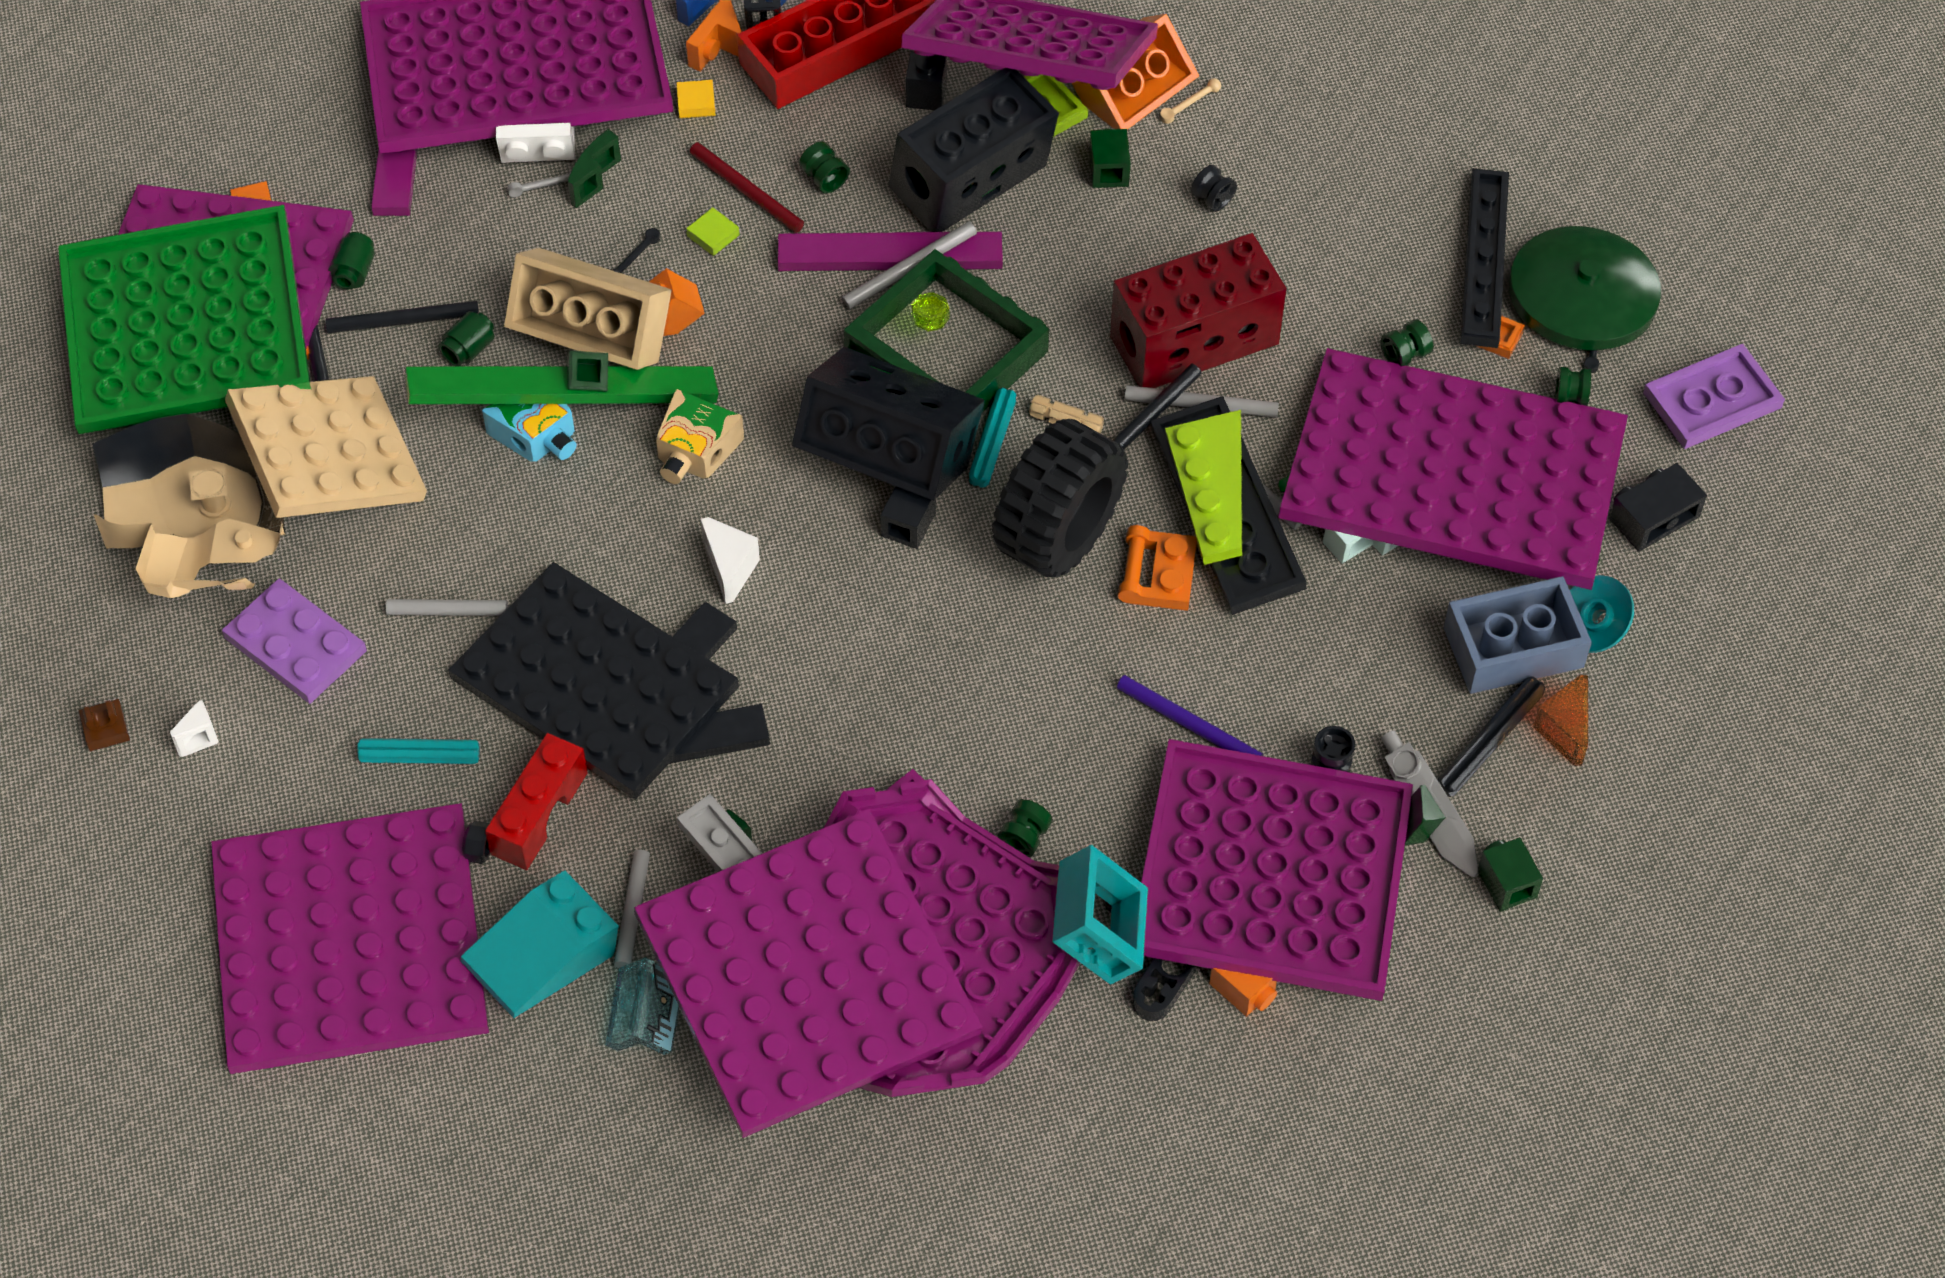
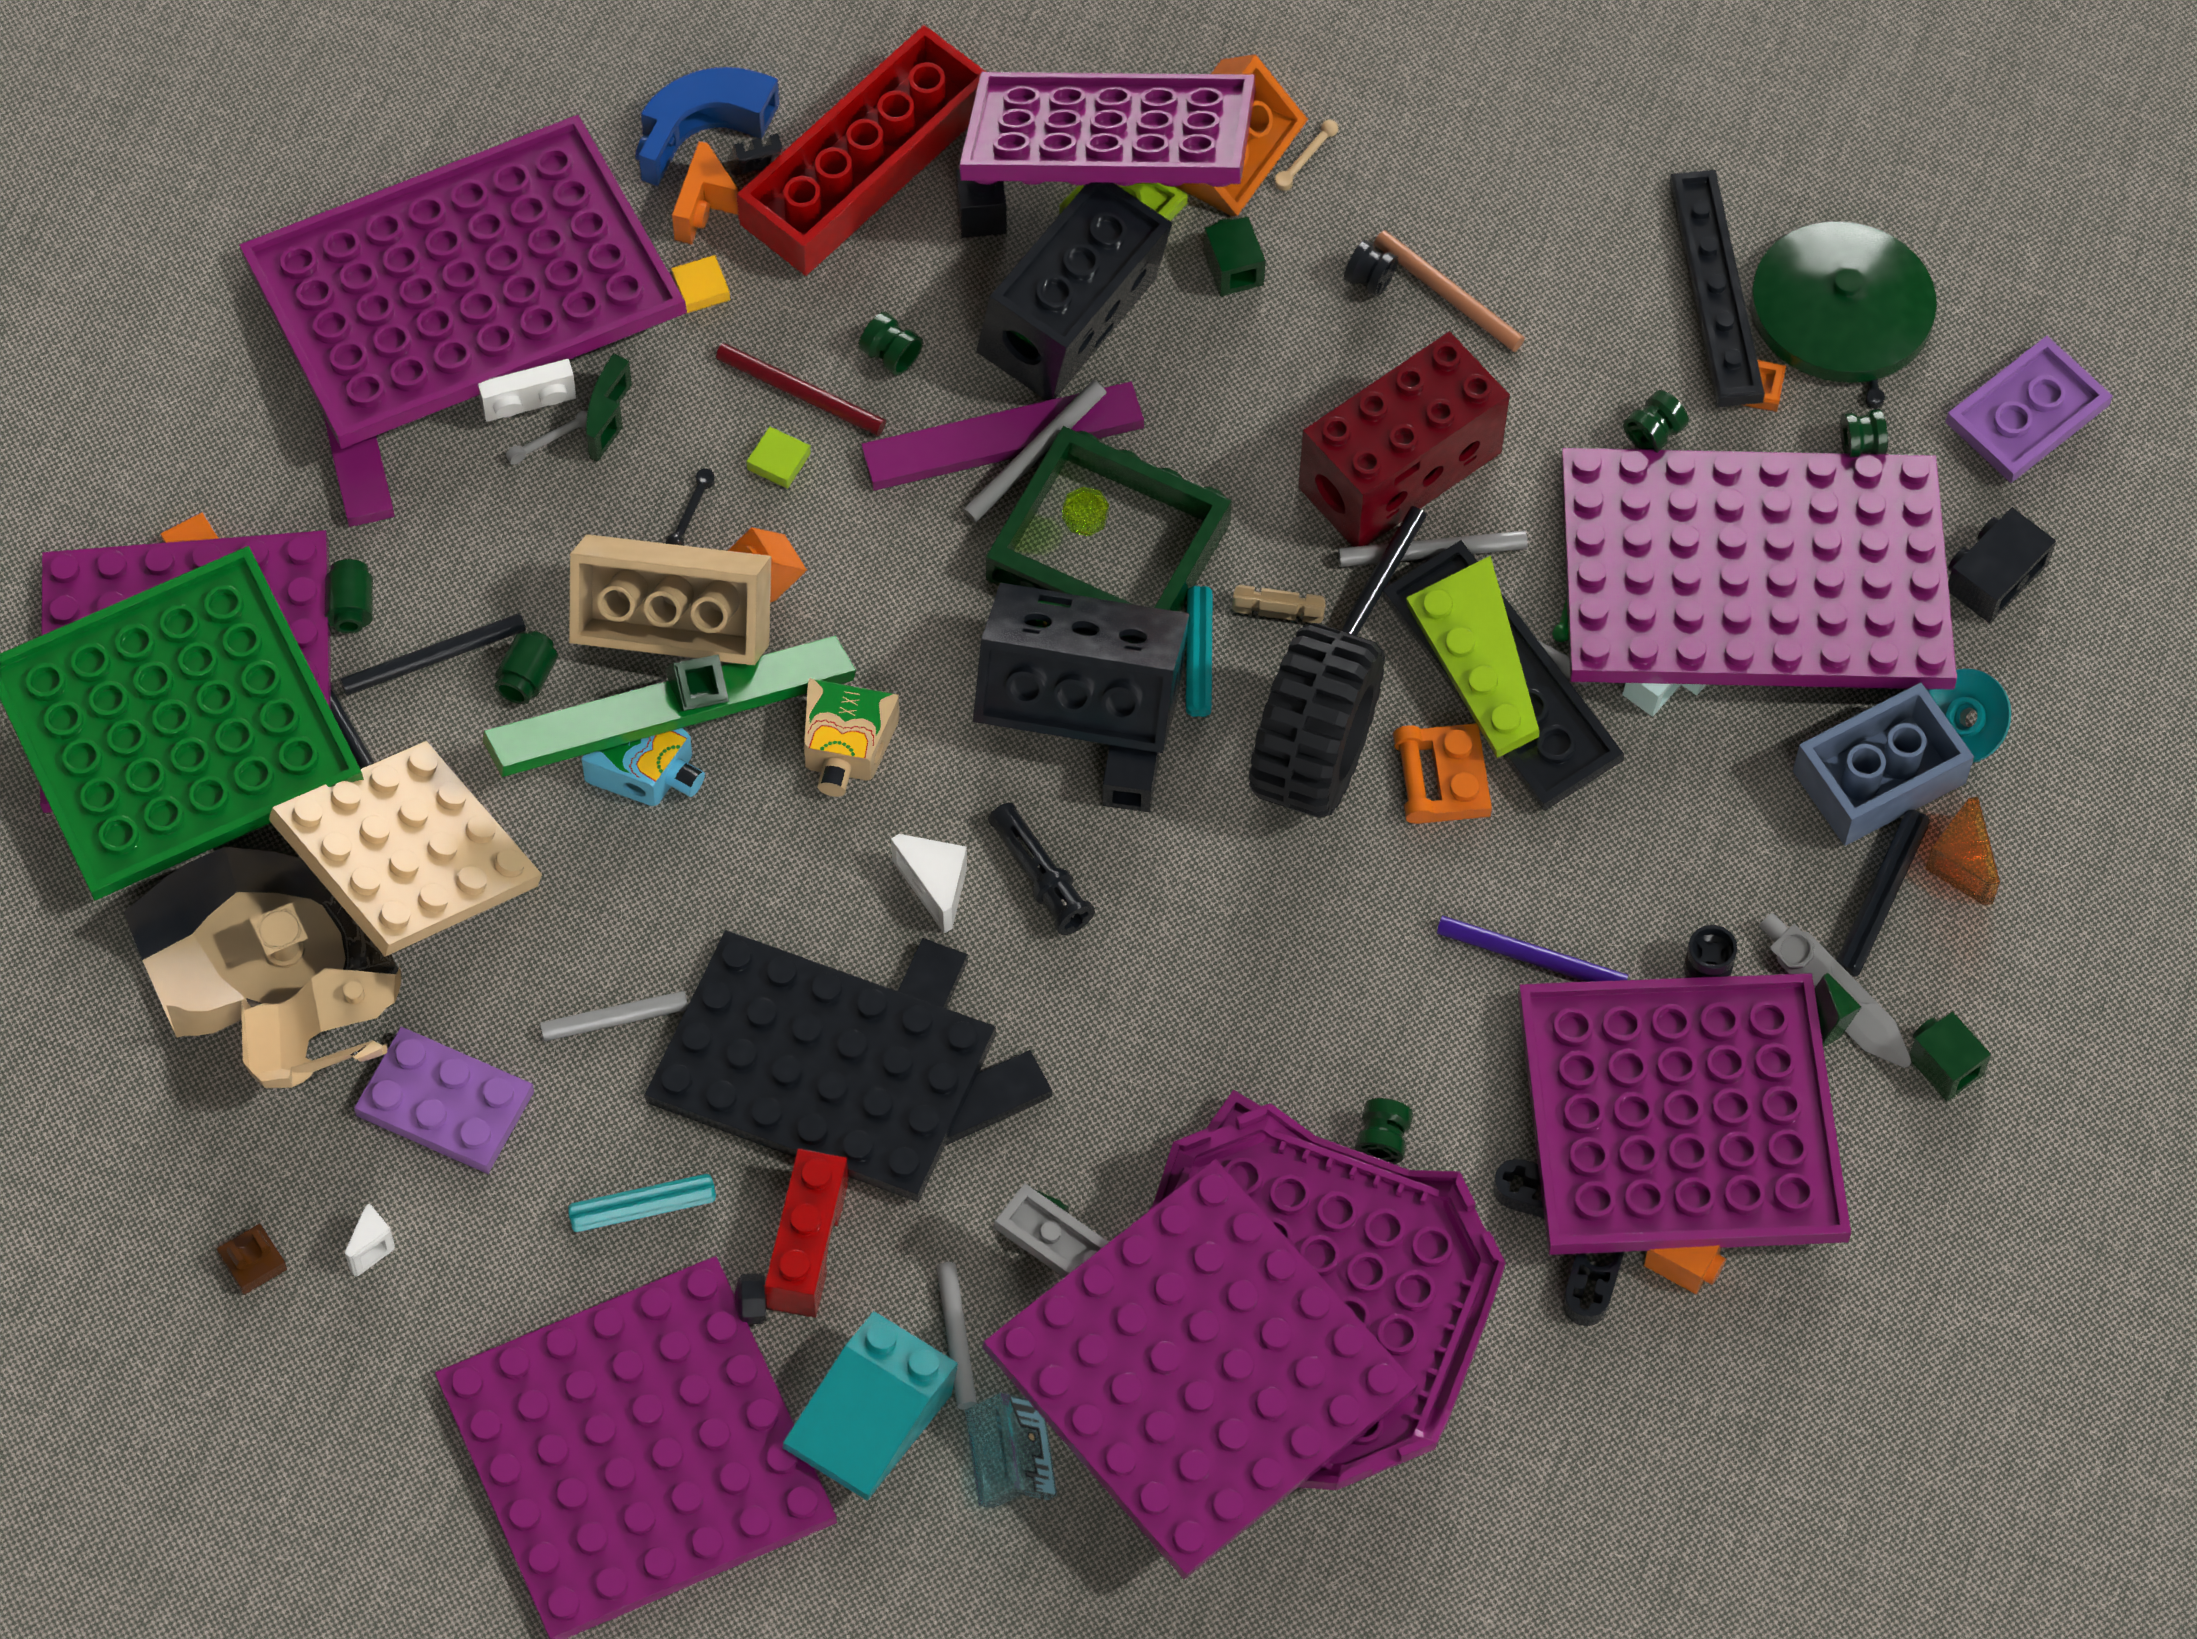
camera: 15 degrees left, 5 degrees up
(820, 597) = (1049, 882): none -> black pin
(1118, 949) = (1542, 1249): teal window -> none
(1273, 219) = (1450, 291): none -> nougat bar

